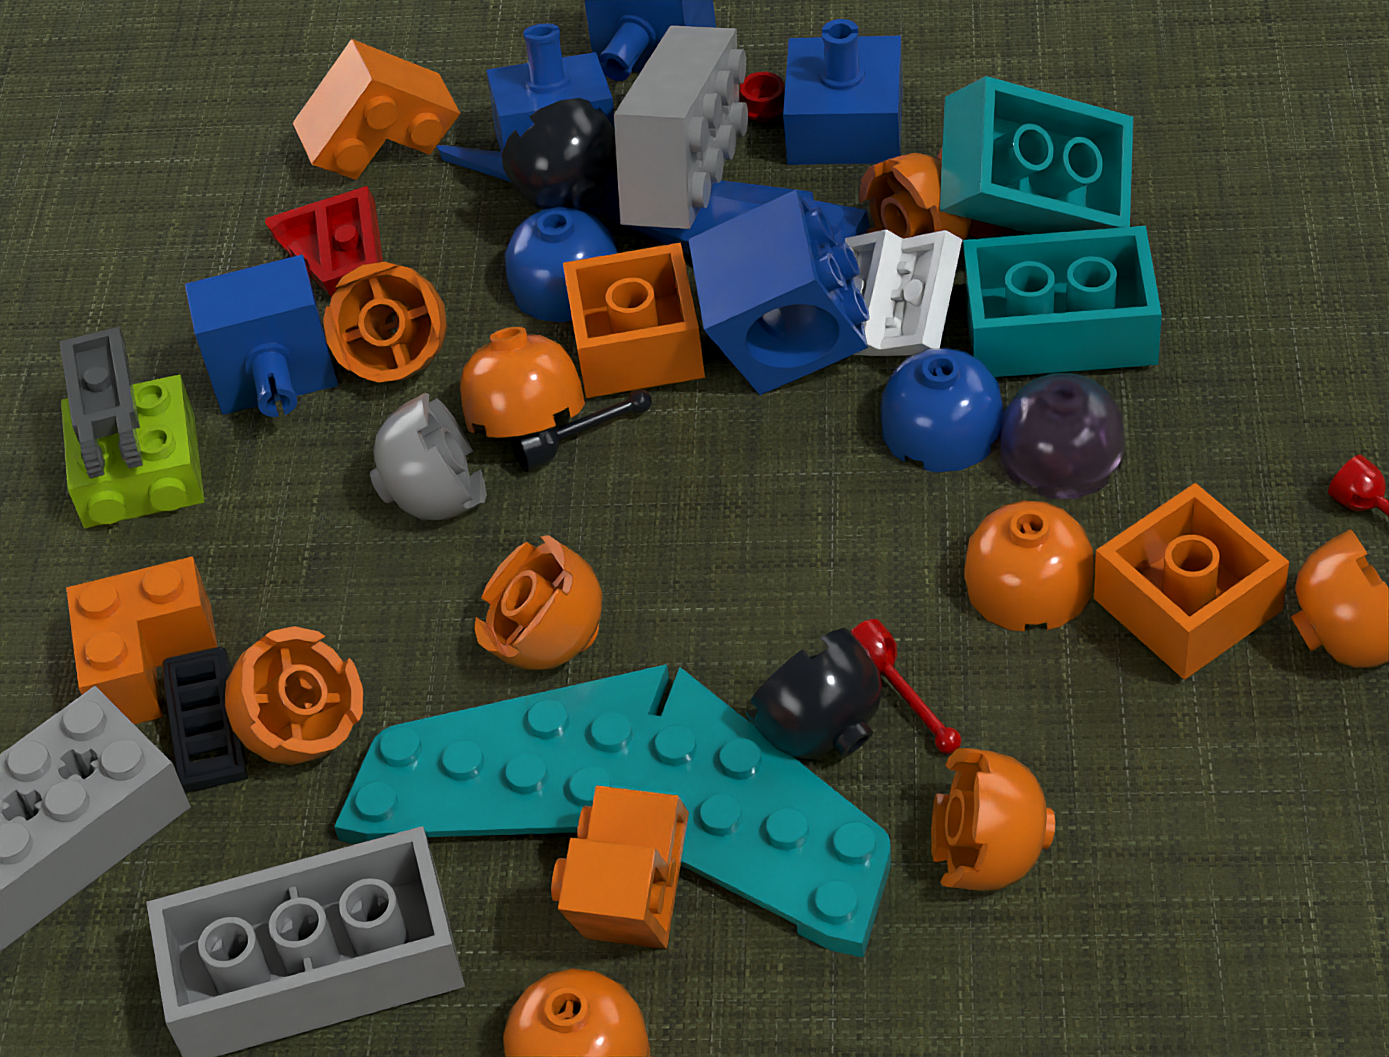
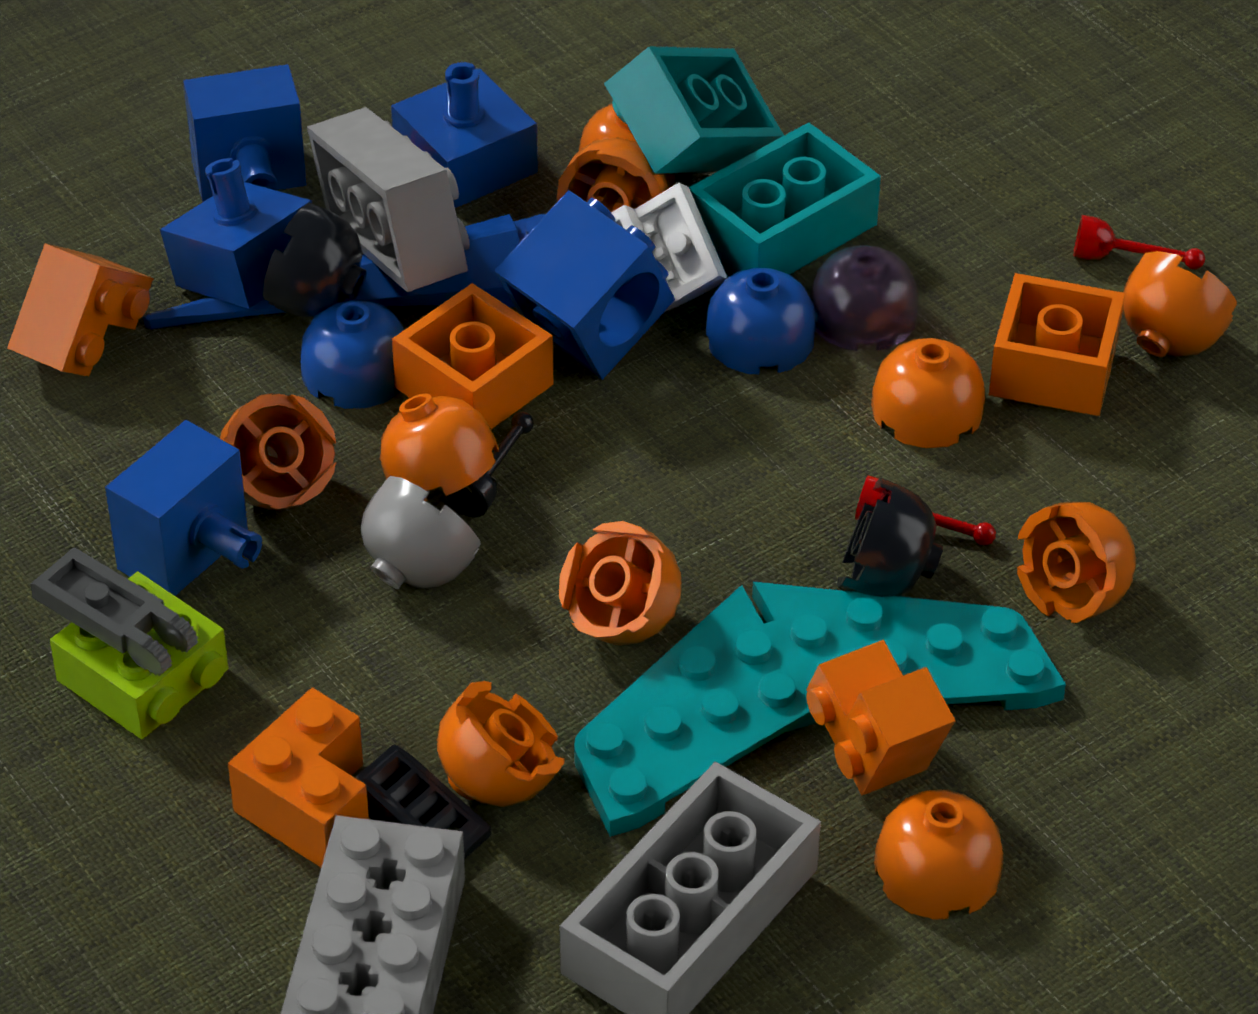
camera: 45 degrees left, 5 degrees down
(331, 235) = (127, 420): red wing -> none

